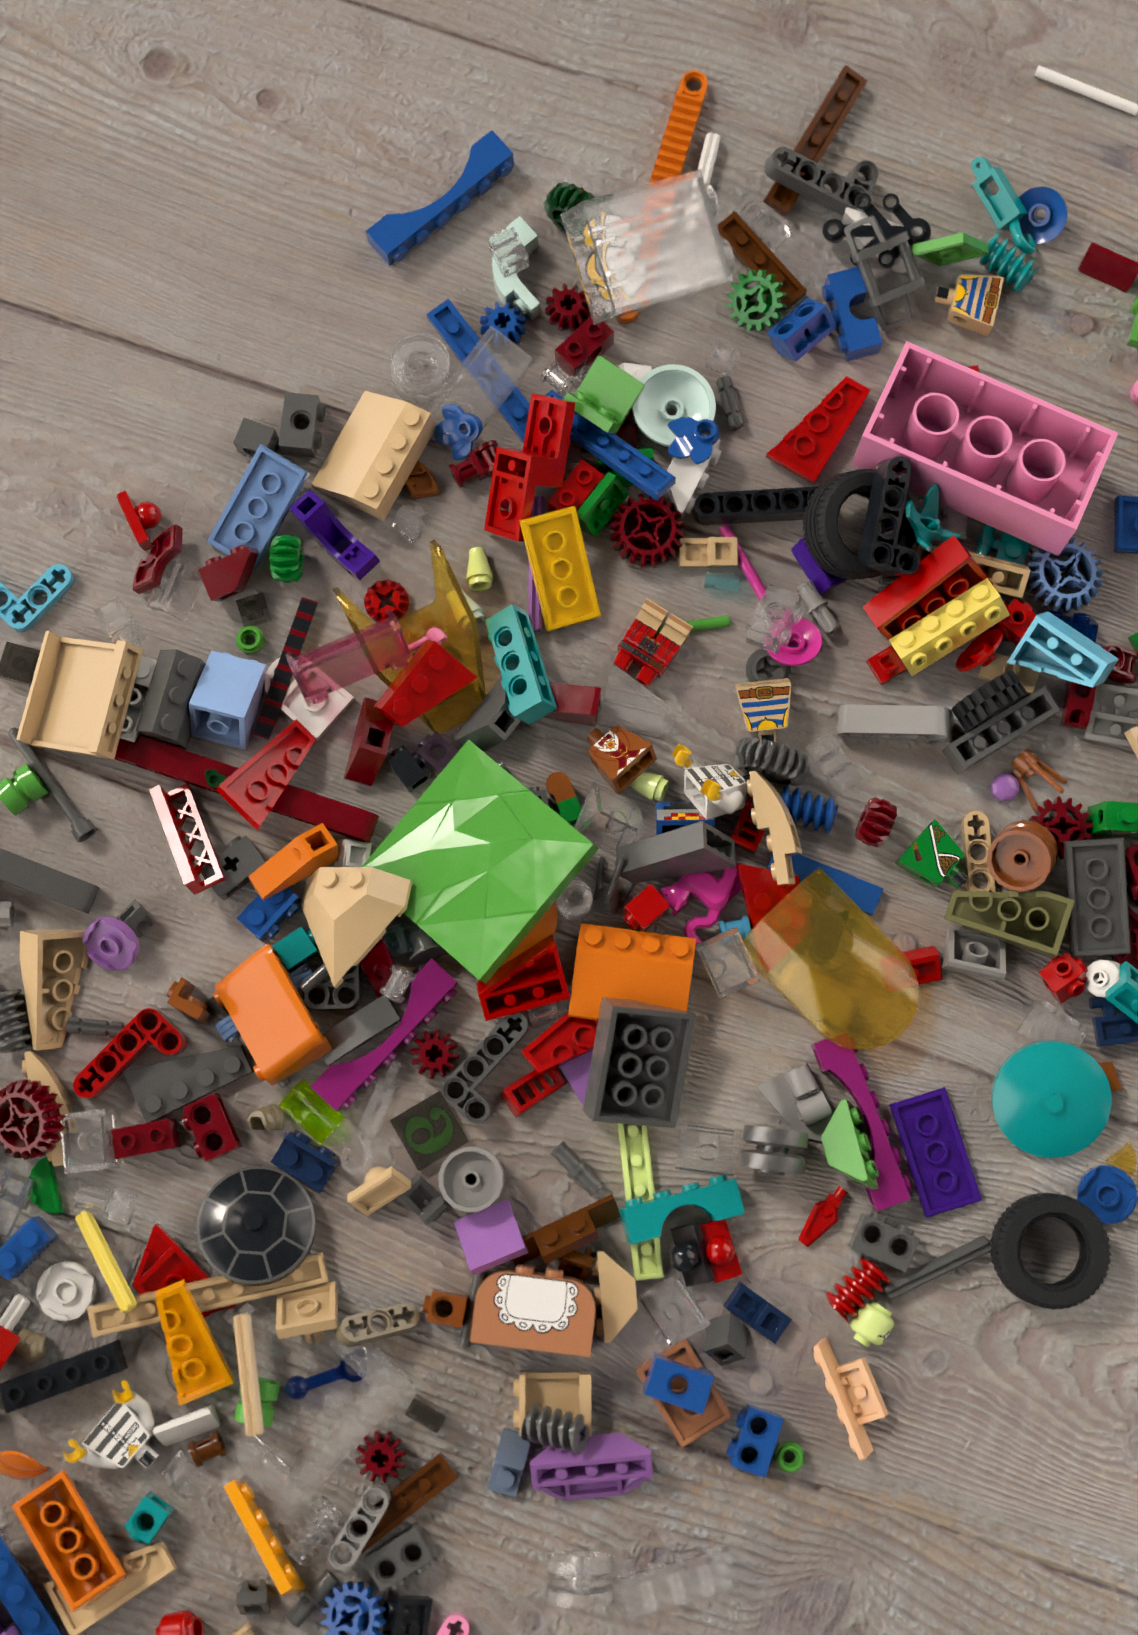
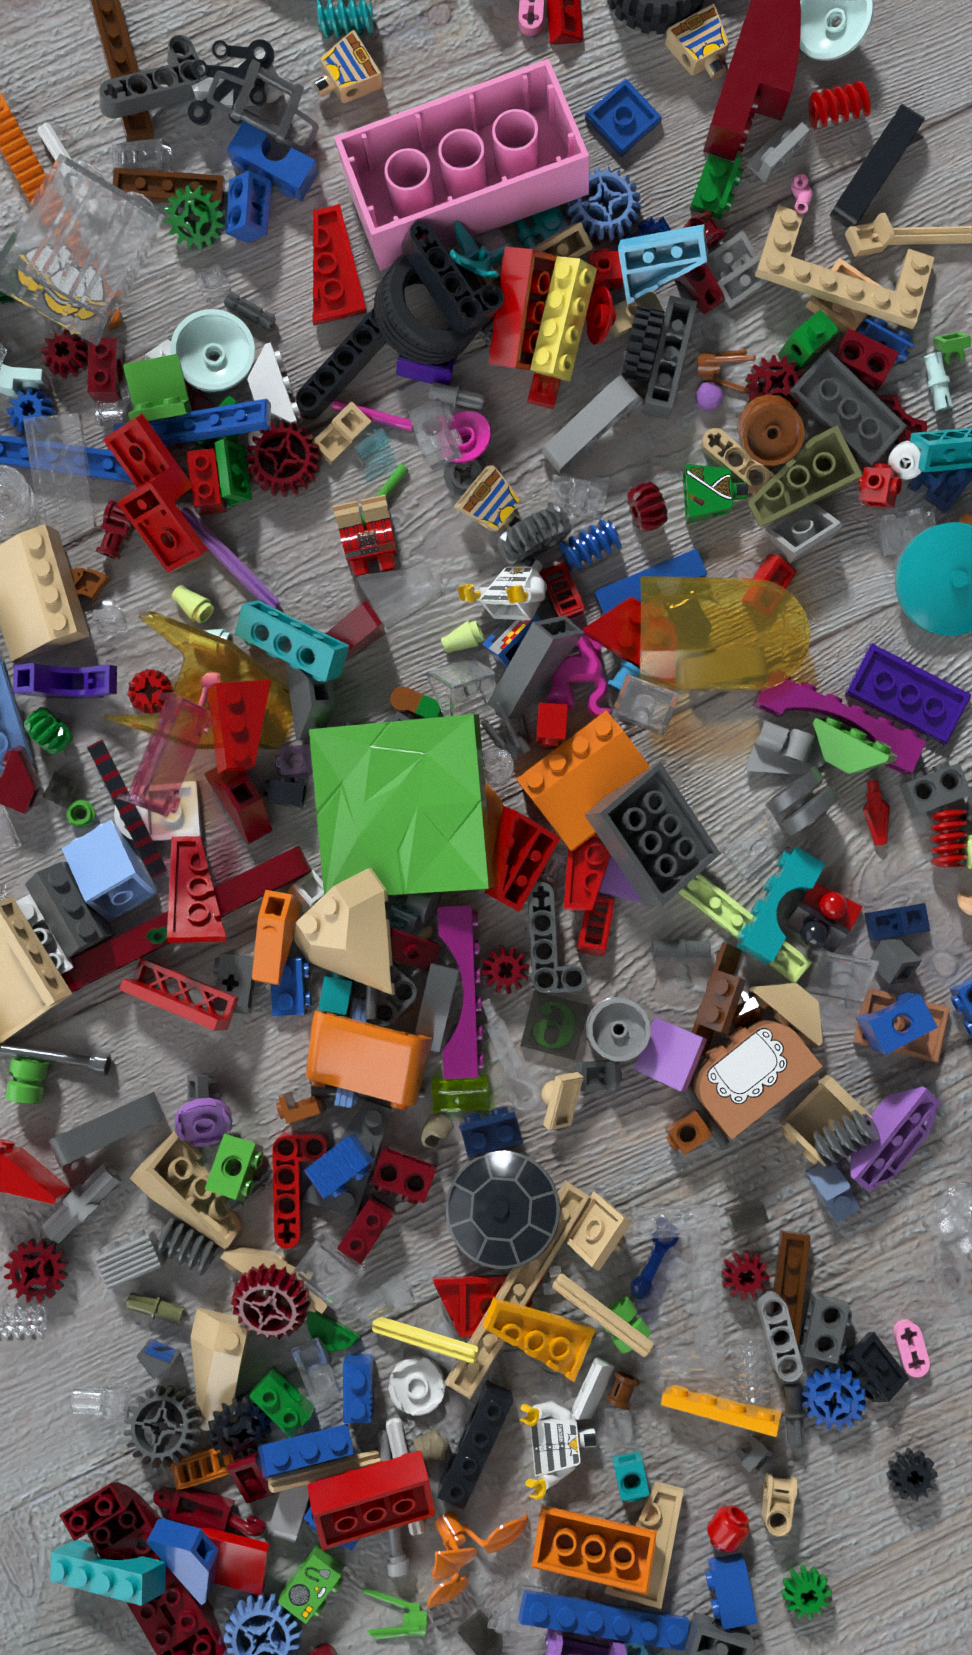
camera: 45 degrees left, 5 degrees up
(109, 985) = (221, 1177): none -> bright green brick
(172, 1073) = (339, 1167): none -> blue brick
(368, 1333) = (655, 1203): dark tan beam -> none
(397, 984) = (432, 948): clear bush -> none
(454, 431) = (74, 522): blue plate -> none
(560, 568) = (250, 544): yellow tile -> none
(619, 756) = (425, 636): dark orange torso -> none
(689, 439) = (250, 363): blue plate -> none
(773, 815) = (574, 570): tan slope -> none
(951, 249) = (296, 43): bright green tile -> none

